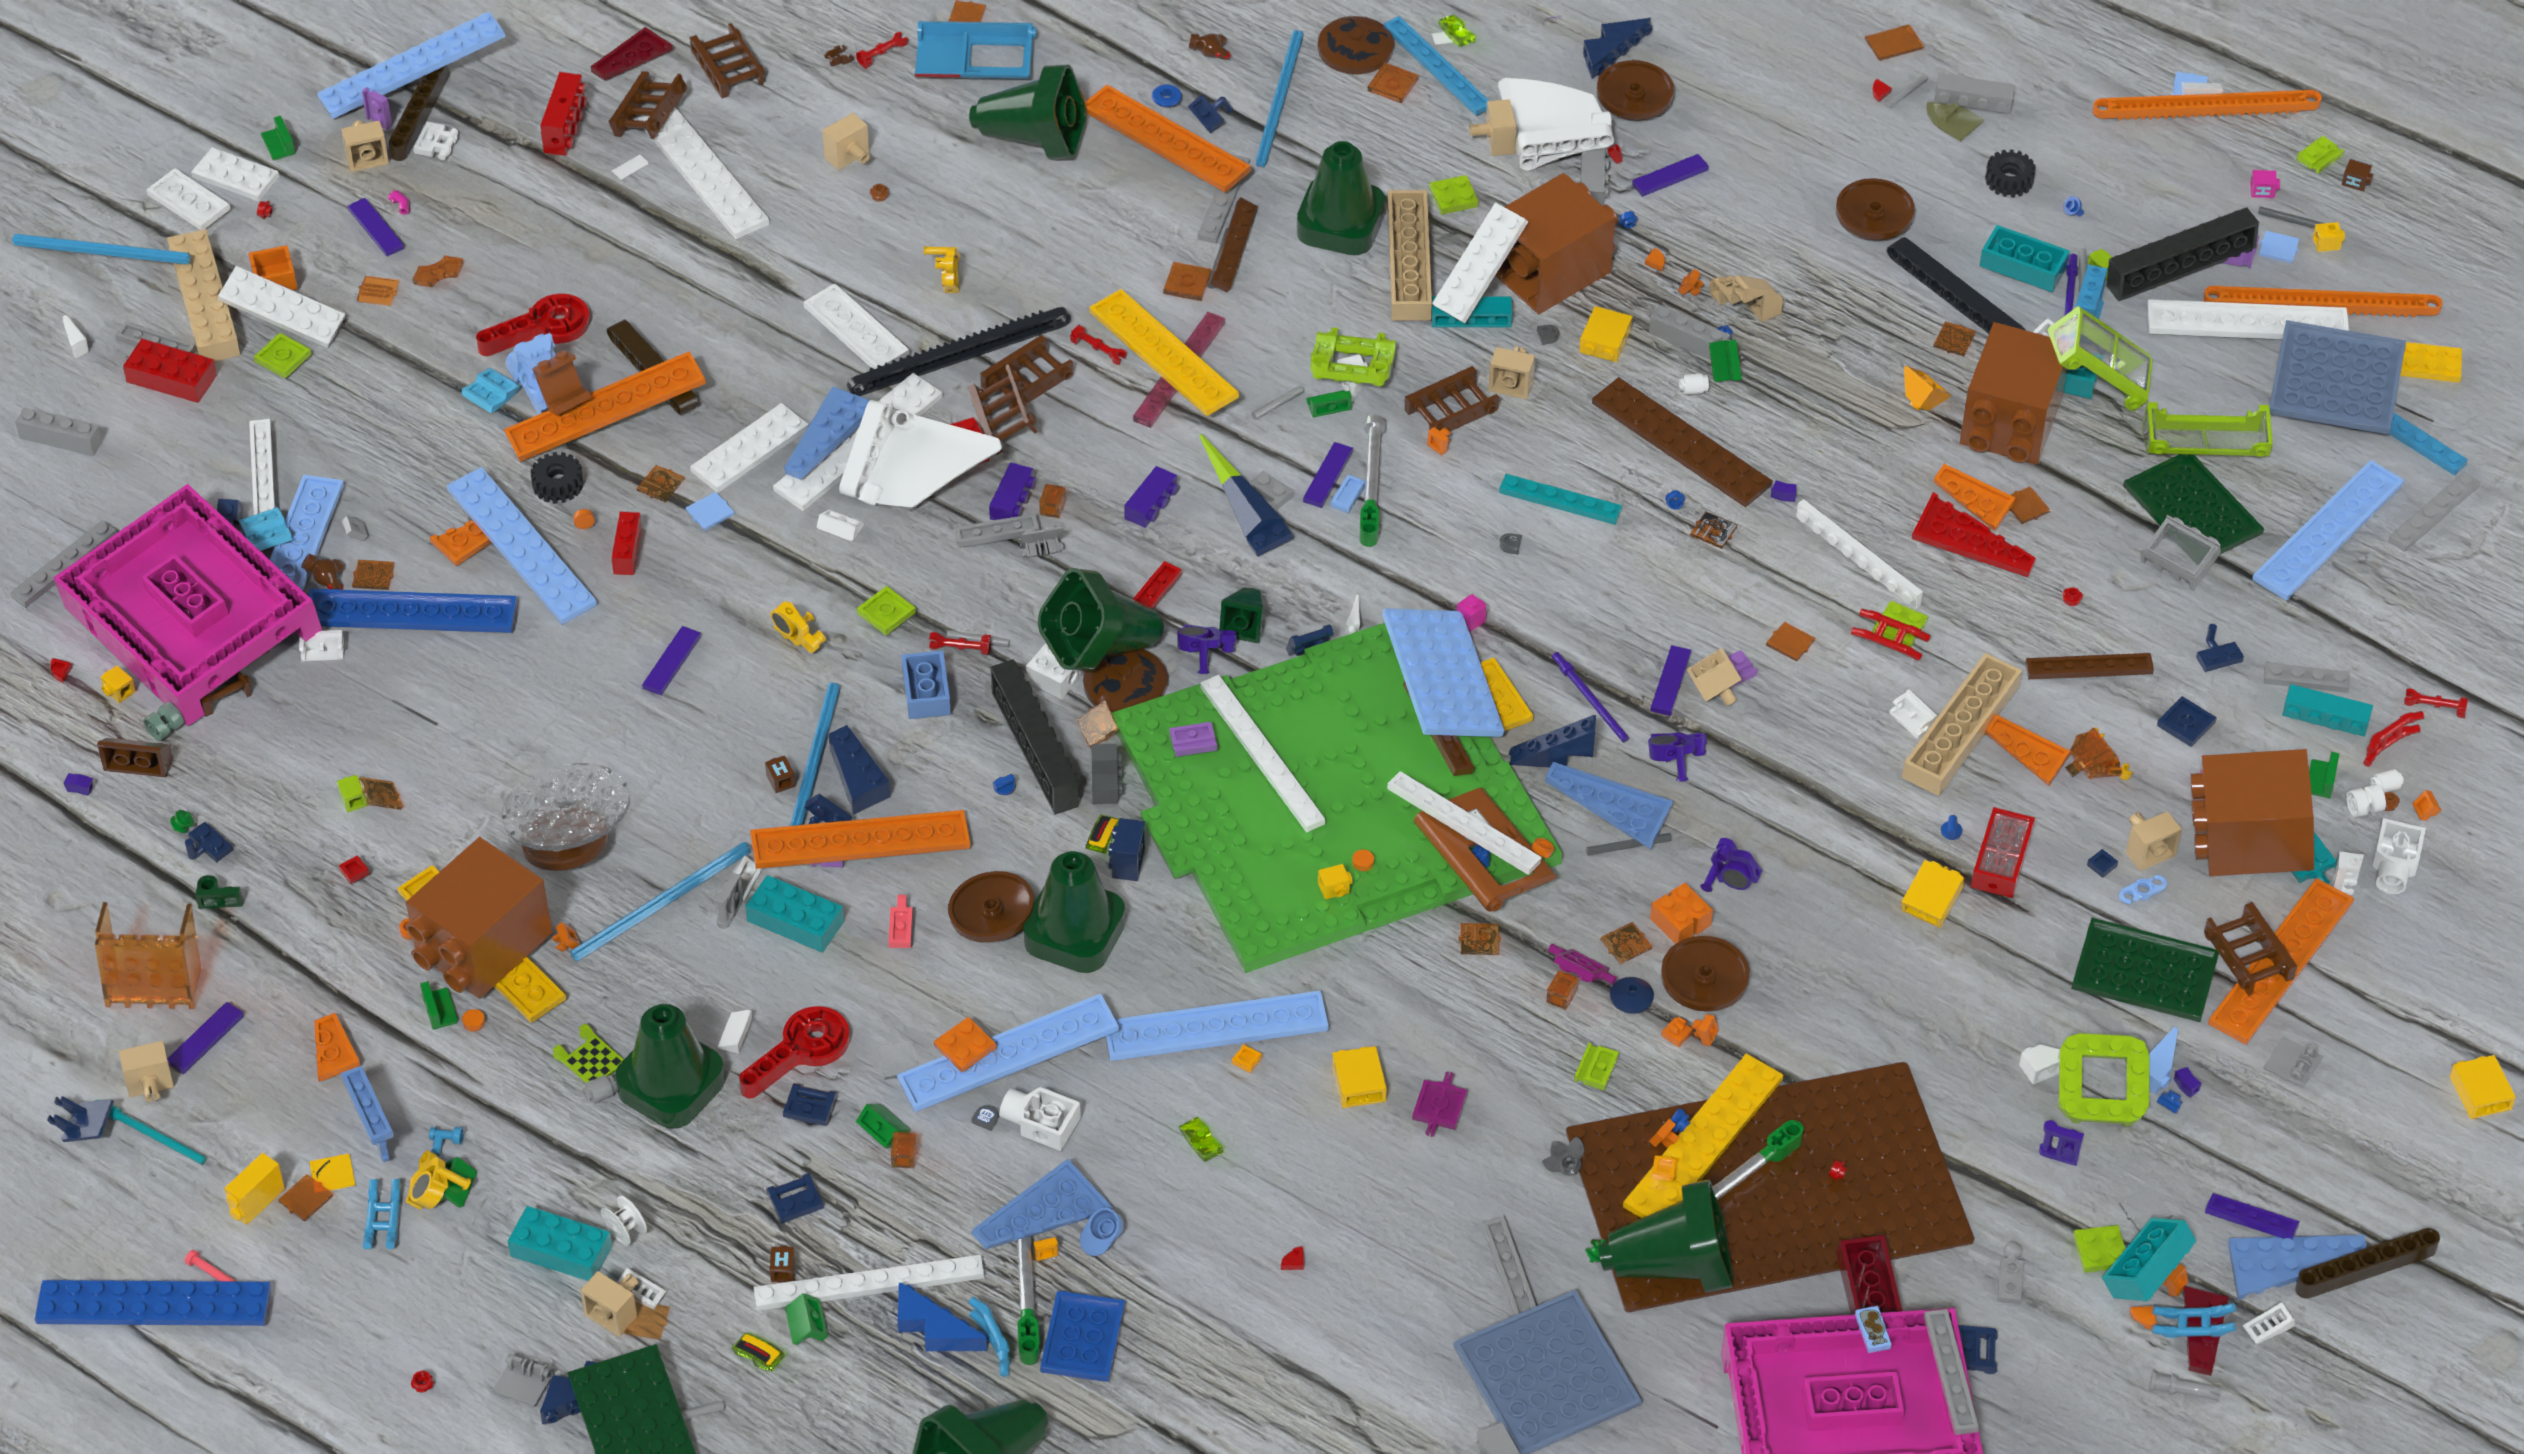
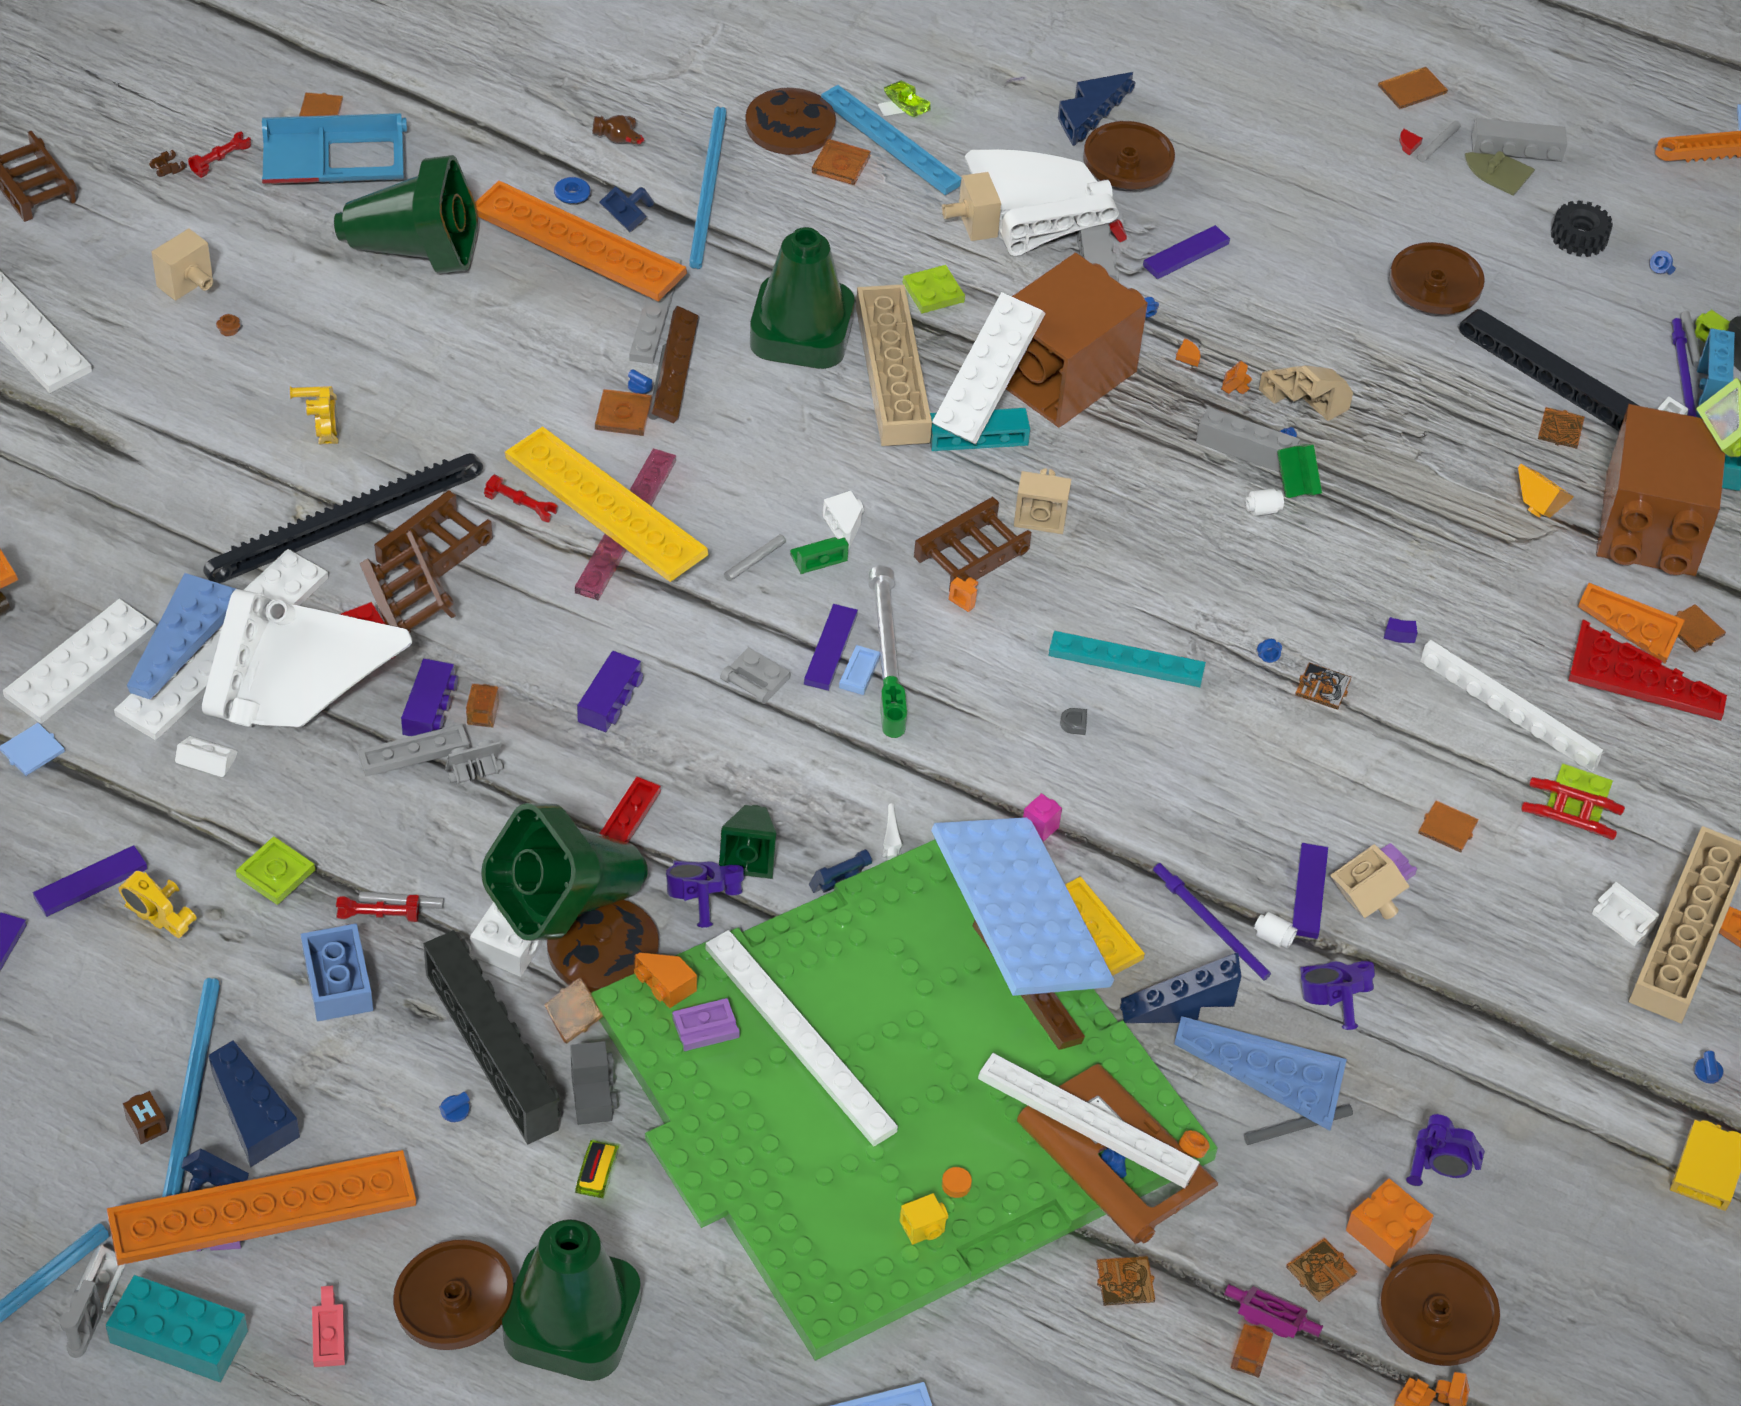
camera: 10 degrees left, 0 degrees up
(747, 608) = (89, 881): none -> dark purple tile
(855, 327) = (209, 495): white plate -> none
(1127, 849) = (633, 1192): dark blue brick -> none
(1168, 703) = (666, 976): none -> orange slope
(1202, 258) = (638, 382): none -> blue plate
(1257, 519) = (749, 711): dark blue plate -> none
(1329, 342) = (875, 481): lime plate -> none
(1548, 334) = (1075, 451): dark grey tile -> none
(1605, 334) = (1146, 447): yellow brick -> none
(1630, 1001) = (1340, 1357): dark blue dish -> none
(1637, 706) = (1275, 930): none -> white brick
(1682, 442) = (1263, 576): reddish brown plate -> none
(2024, 258) = (1624, 326): teal brick -> none

